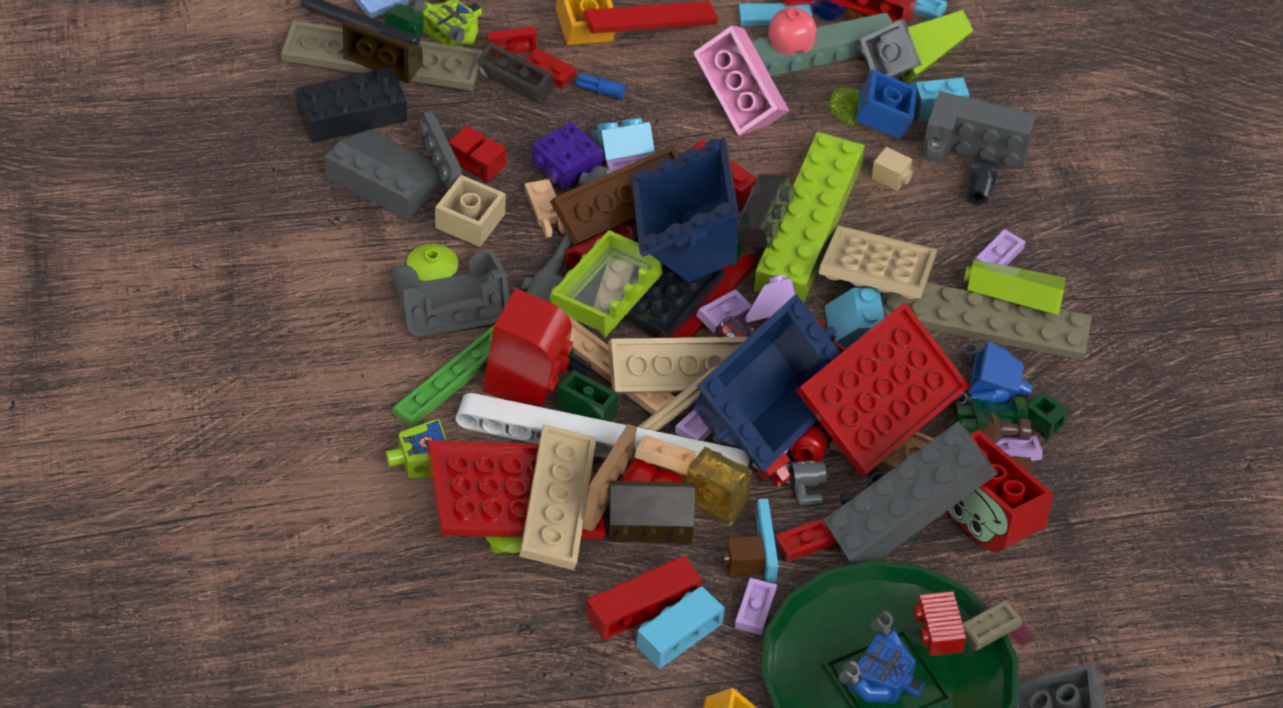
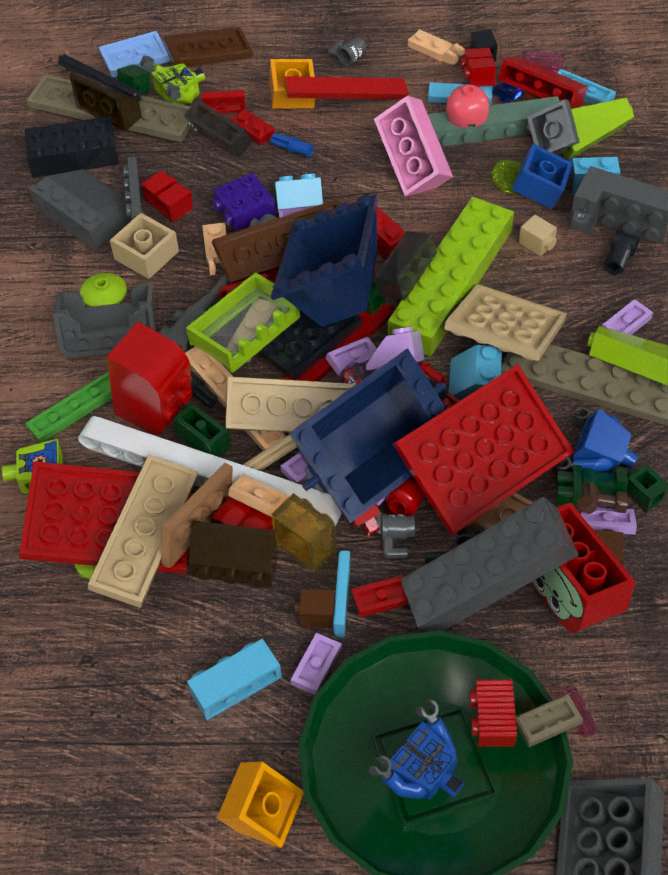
camera: 15 degrees right, 5 degrees up
(641, 597) = (204, 642): red brick -> none

